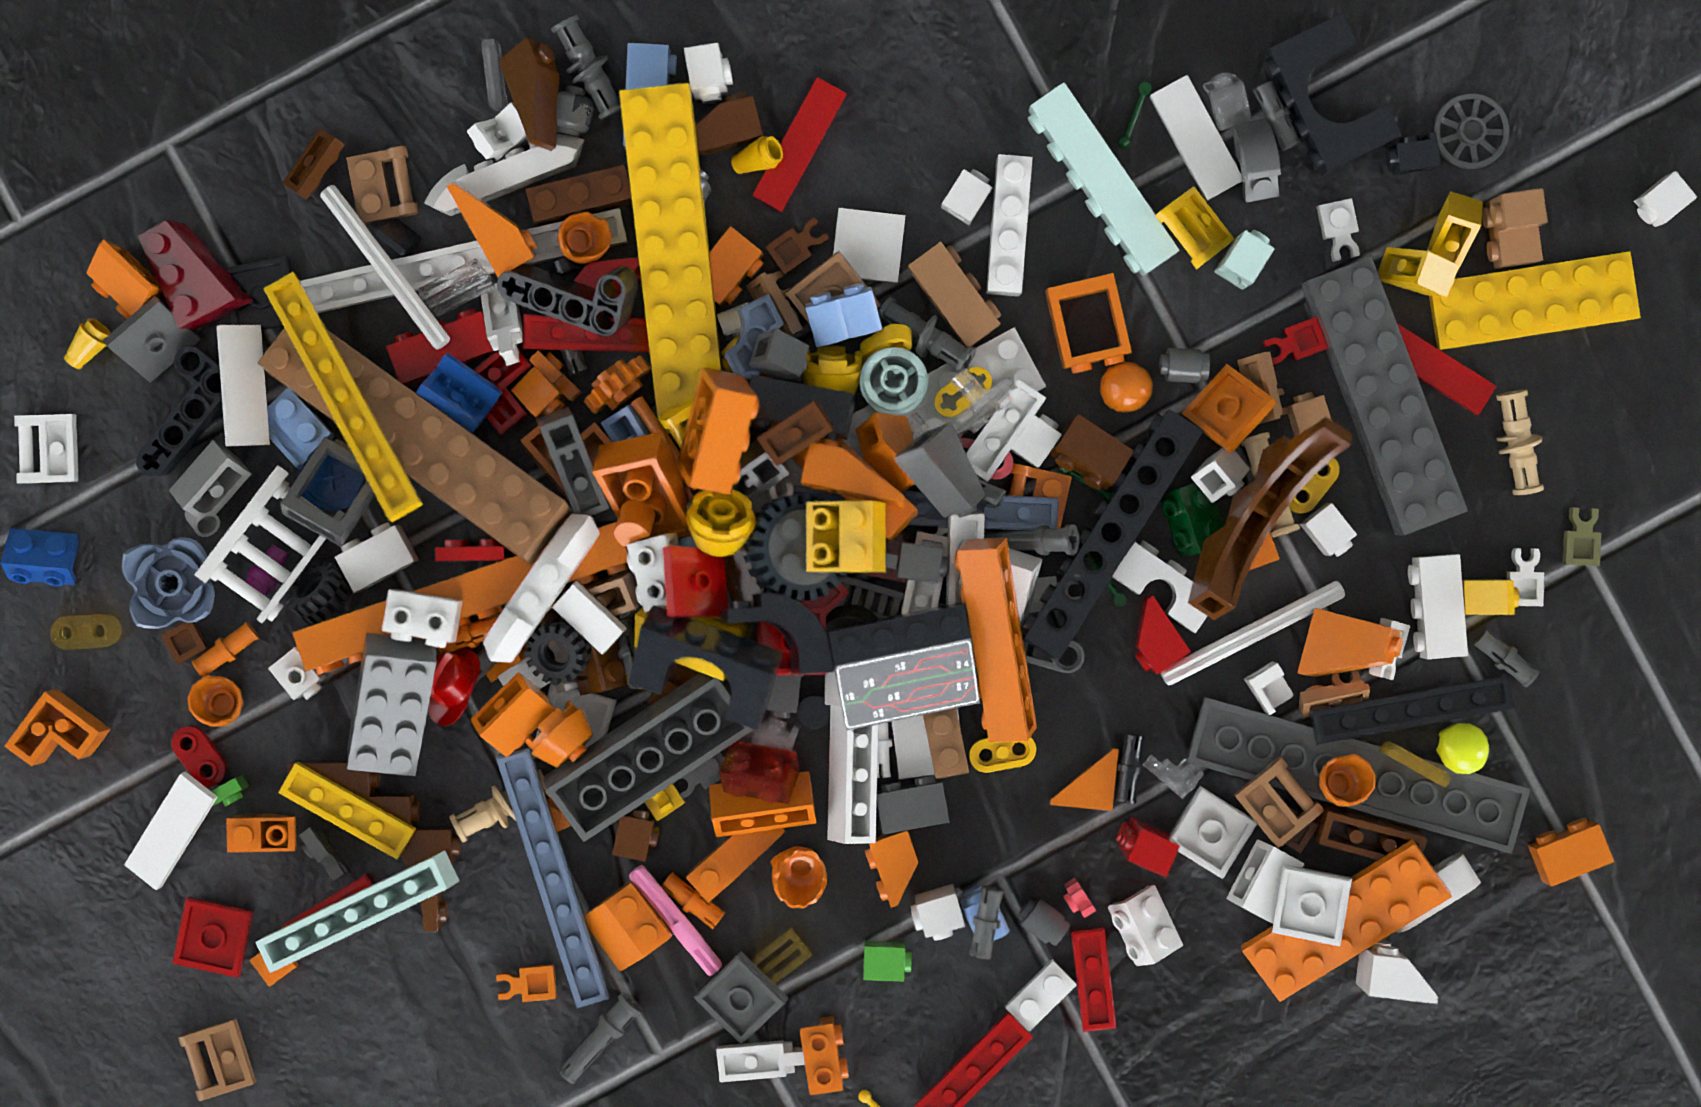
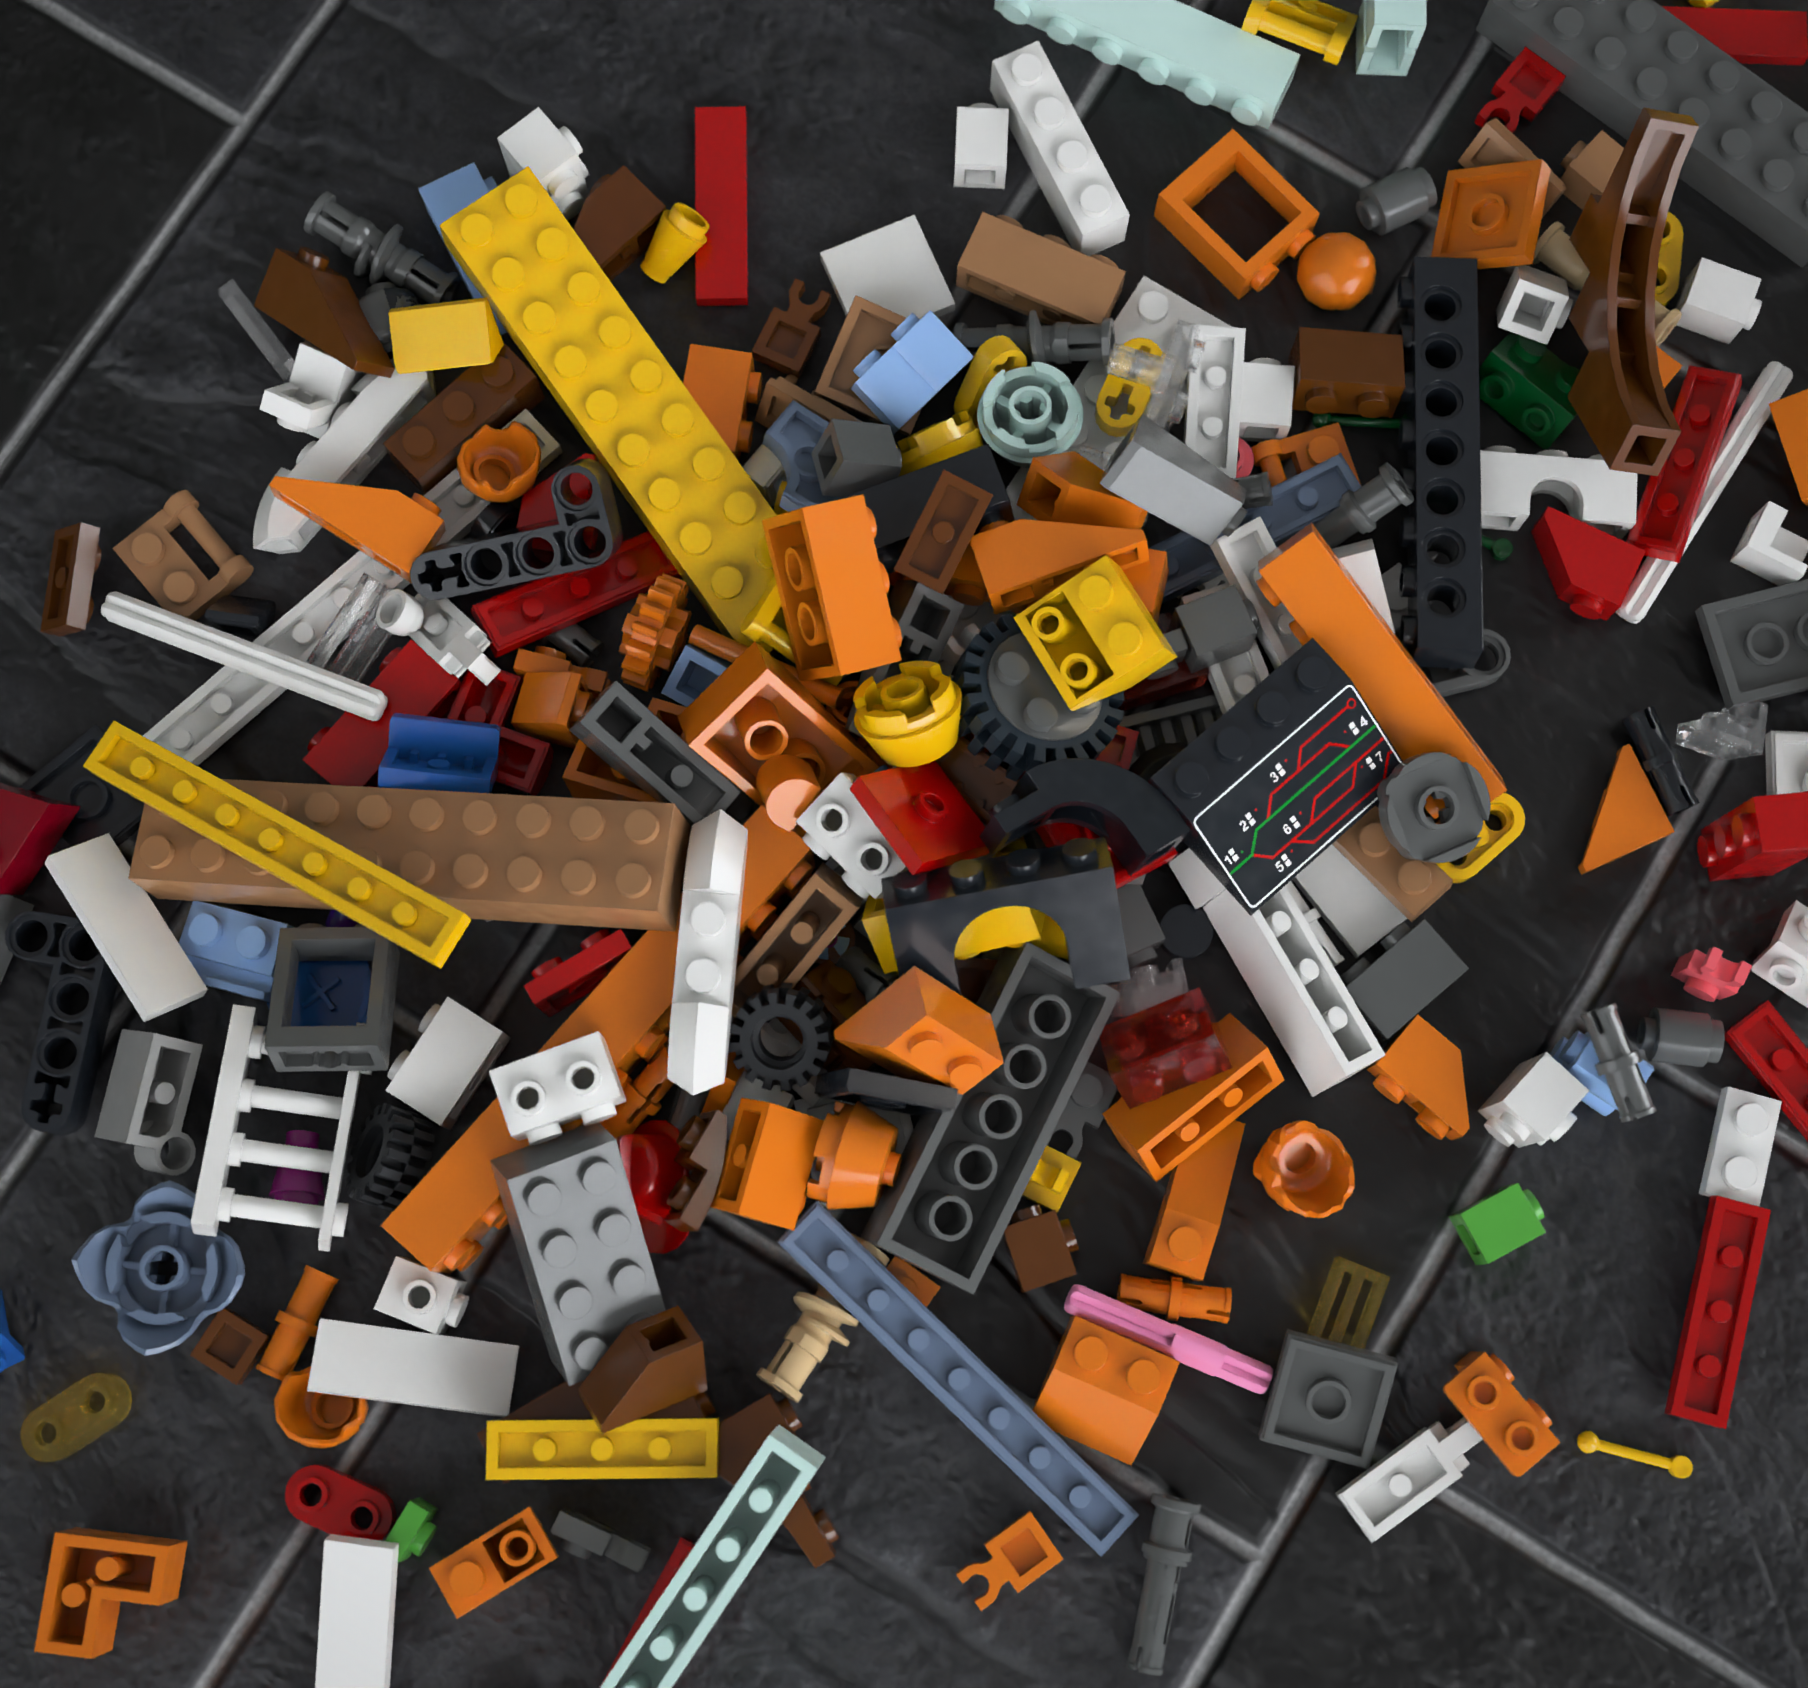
camera: 25 degrees left, 10 degrees down
(273, 709) = (413, 1368): none -> white piece
(389, 785) = (645, 1370): none -> reddish brown slope
(482, 293) = (400, 613): none -> white hinge
(484, 685) = (703, 1154): none -> reddish brown slope
(589, 617) = (799, 959): white tile -> none
(591, 148) = (444, 335): none -> yellow slope
(595, 713) = (885, 1092): none -> black tile
(632, 698) = (925, 1033): none -> orange slope
(969, 712) = (1403, 802): none -> dark grey plate
(1251, 612) = (1676, 493): none -> red tile

